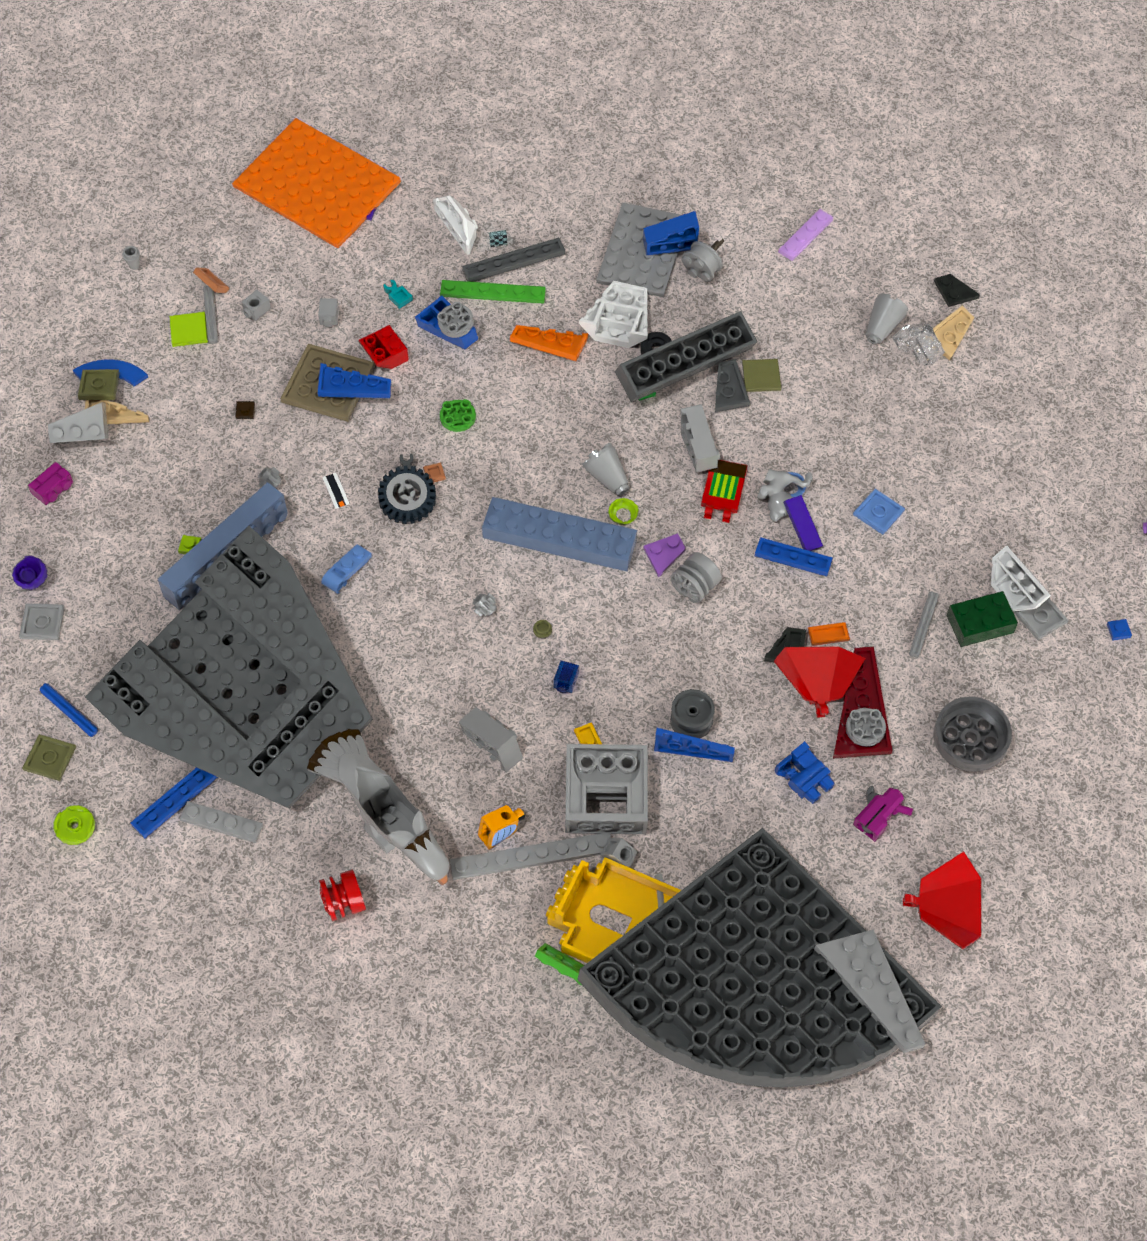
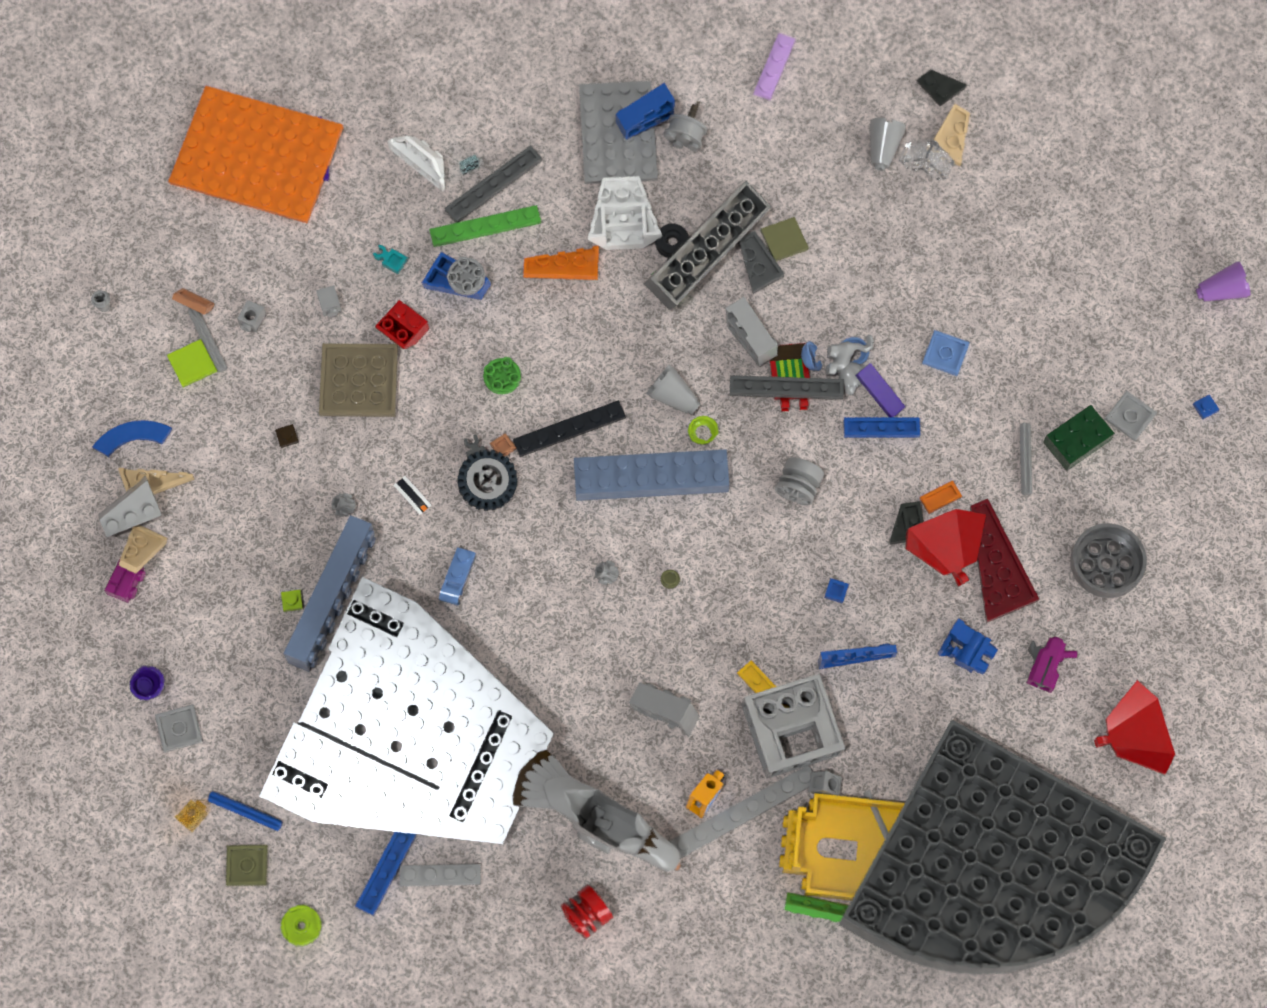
camera: 20 degrees left, 10 degrees up
(19, 697) = (194, 821): none -> clear yellow brick
(74, 460) = (140, 548): none -> tan wing
(98, 384) = (128, 456): olive tile -> none
(341, 383) = (385, 377): blue wing -> none
(500, 475) = (569, 428): none -> black plate
(566, 677) = (711, 622): clear blue brick -> none
(664, 552) = (757, 461): medium lavender wing -> none
(692, 713) = (844, 634): dark grey wheel -> none
(697, 682) = (836, 590): none -> blue plate
(715, 495) = (786, 387): none -> dark grey plate
(750, 470) = (808, 354): none -> medium blue piece
(865, 726) = (1008, 583): light grey tile -> none
(870, 979) = (1098, 836): light grey wing -> none
(1016, 581) = (1099, 389): white wedge -> none

